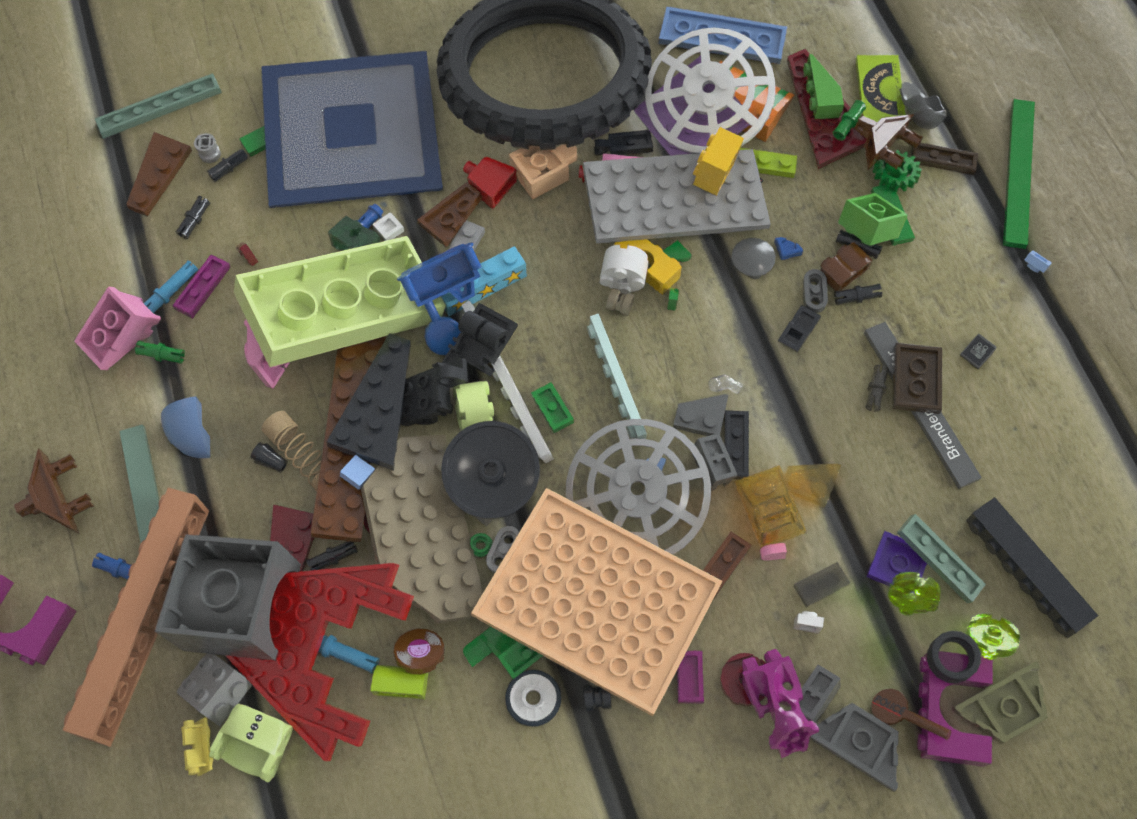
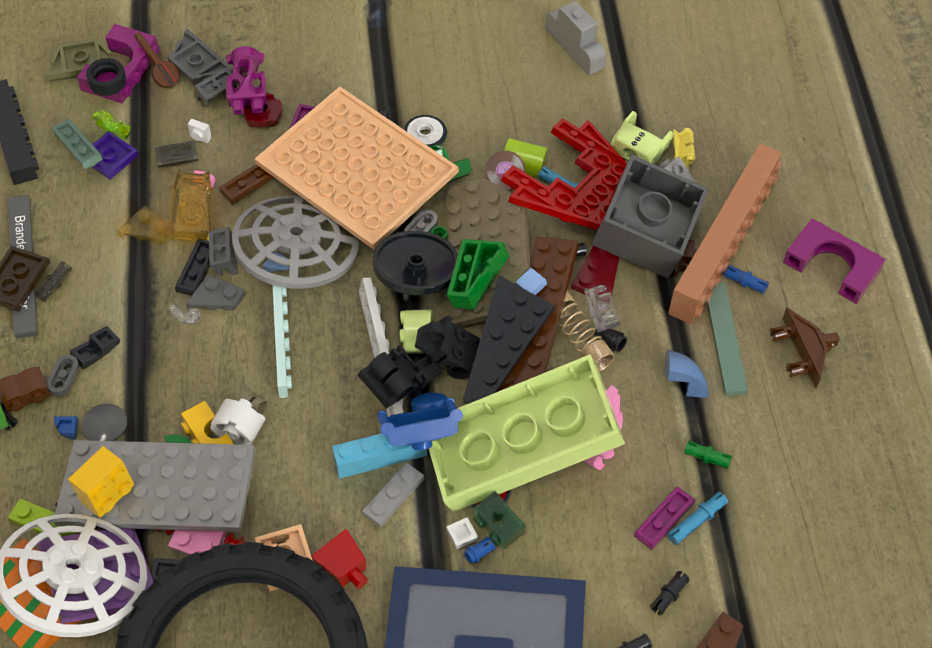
camera: 170 degrees left, 10 degrees down
(115, 327) = (748, 473): bright pink piece -> none
(245, 251) = (615, 539): dark red tile -> none
(279, 478) = (601, 308): none -> clear hinge
(421, 471) = (475, 271): none -> green wedge
(450, 214) = (394, 531): reddish brown wing -> none
(552, 407) = (346, 326): green plate -> none
(673, 299) = (202, 394): green tile -> none
(858, 294) = (24, 363): black pin -> none
(984, 632) = (58, 86): clear neon green plate -> none

